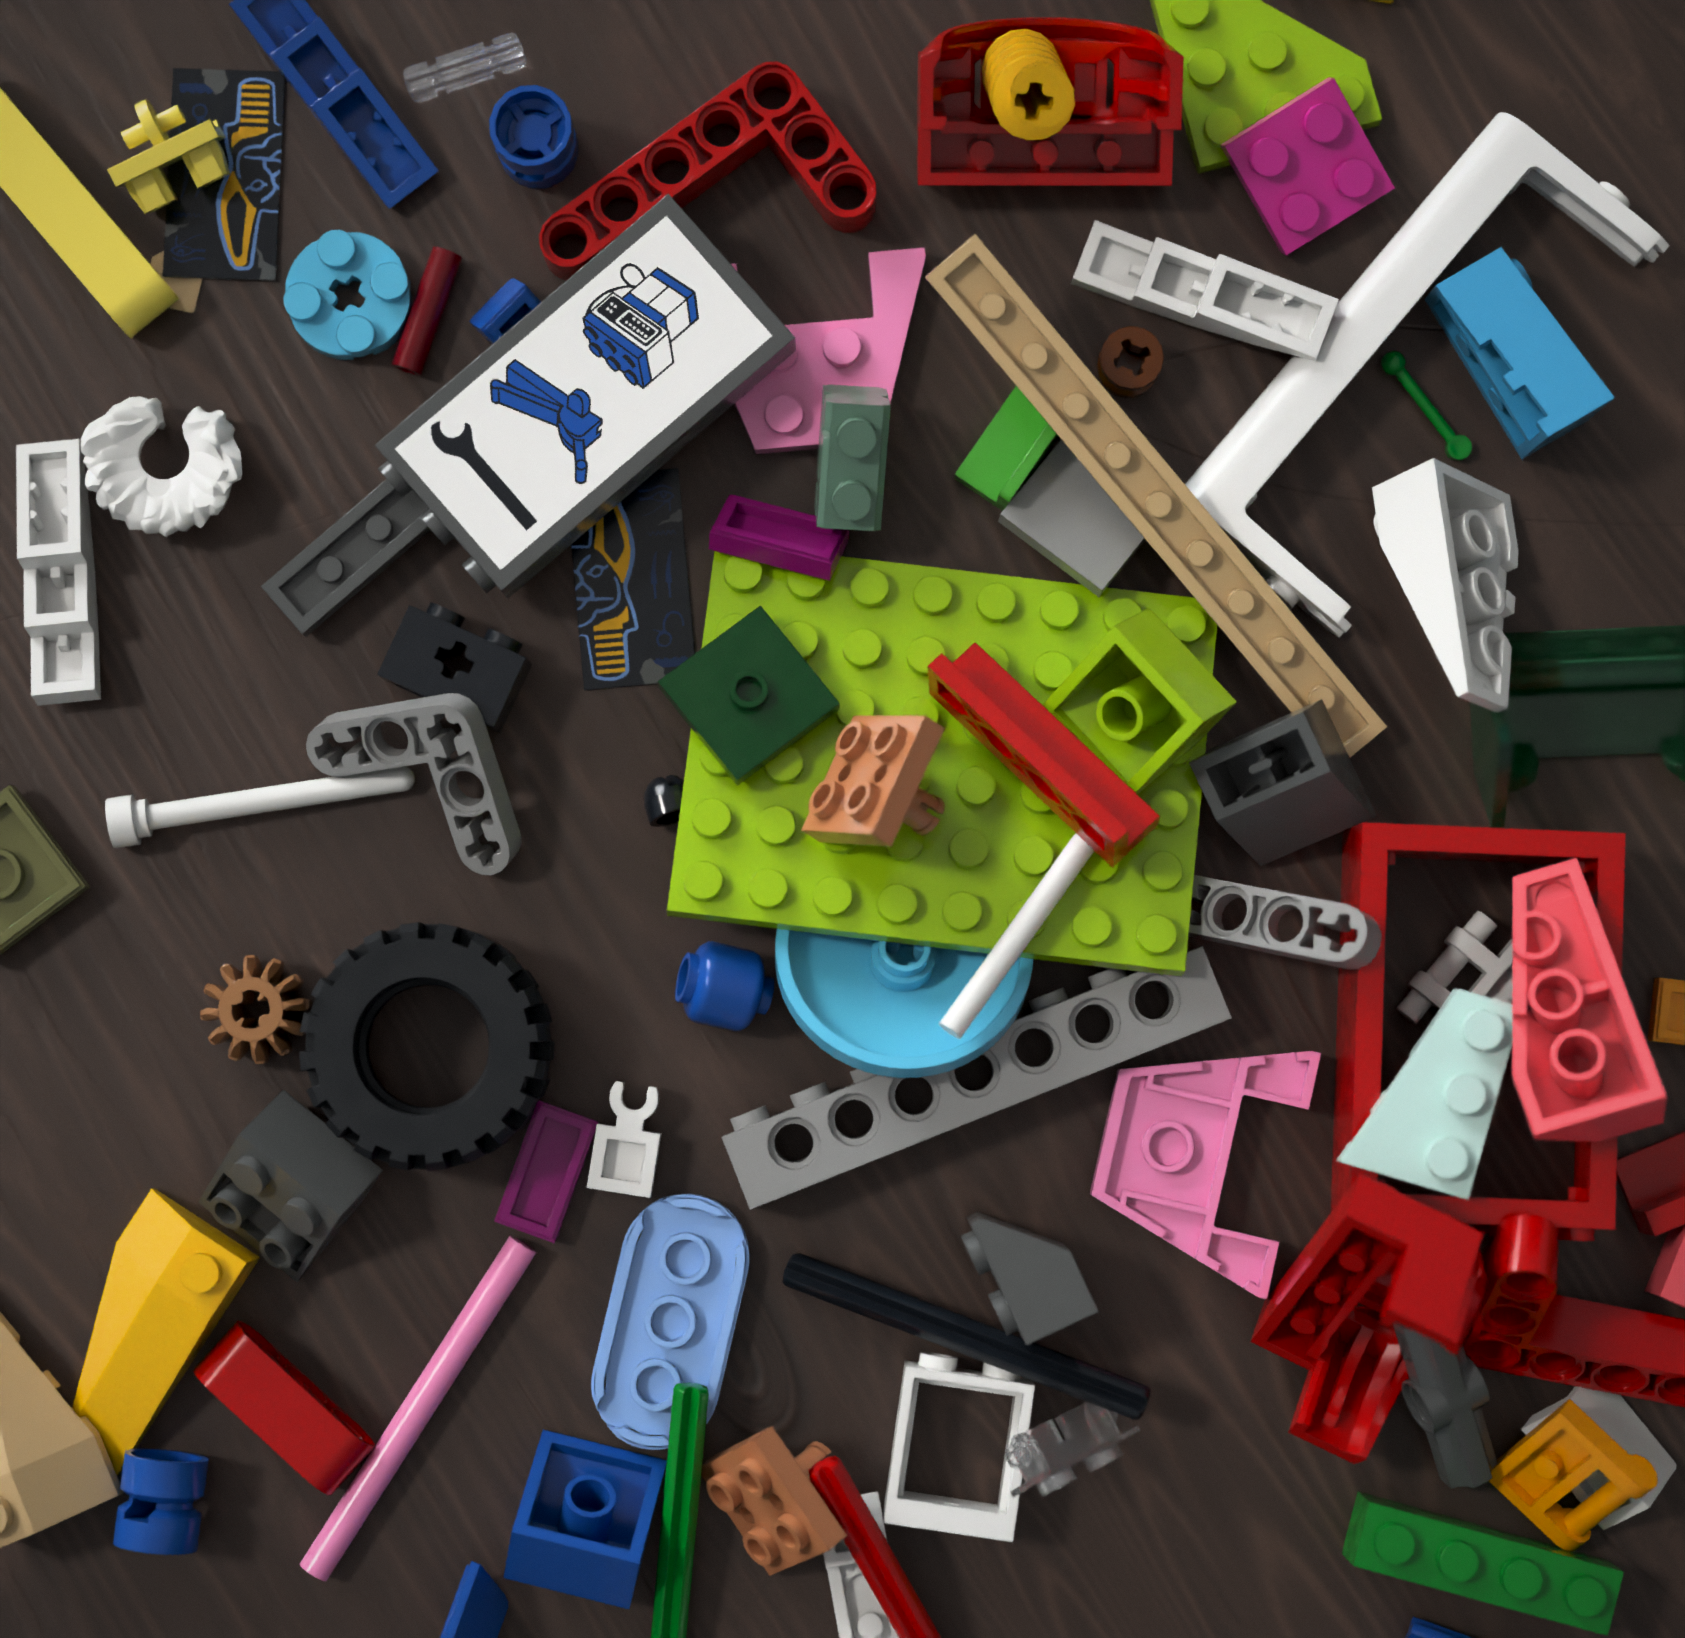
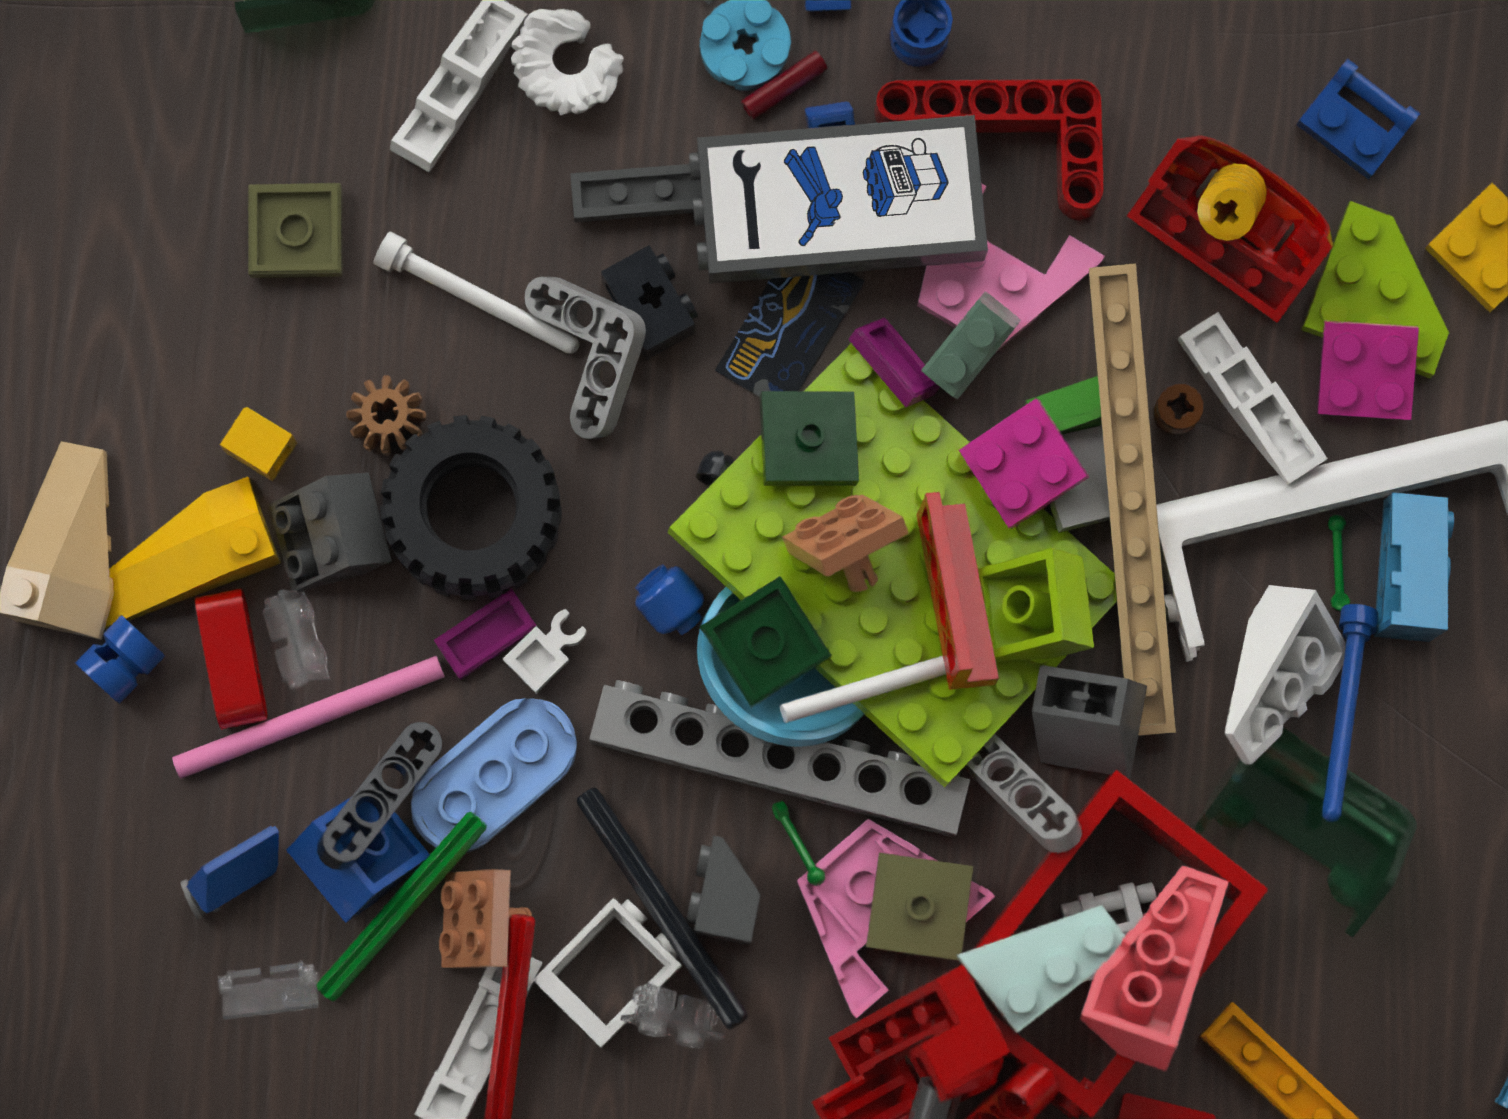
camera: 30 degrees right, 5 degrees down
(136, 1146) = (258, 443): none -> yellow panel
(320, 1311) = (292, 617): none -> clear hinge
(561, 1443) = (380, 795): none -> black beam
(869, 963) = (765, 641): none -> dark green plate
(1007, 549) = (1024, 463): none -> dark pink plate
(1109, 1175) = (815, 875): none -> green hinge
(1248, 1127) = (919, 906): none -> olive plate
(1500, 462) = (1358, 625): none -> blue piece

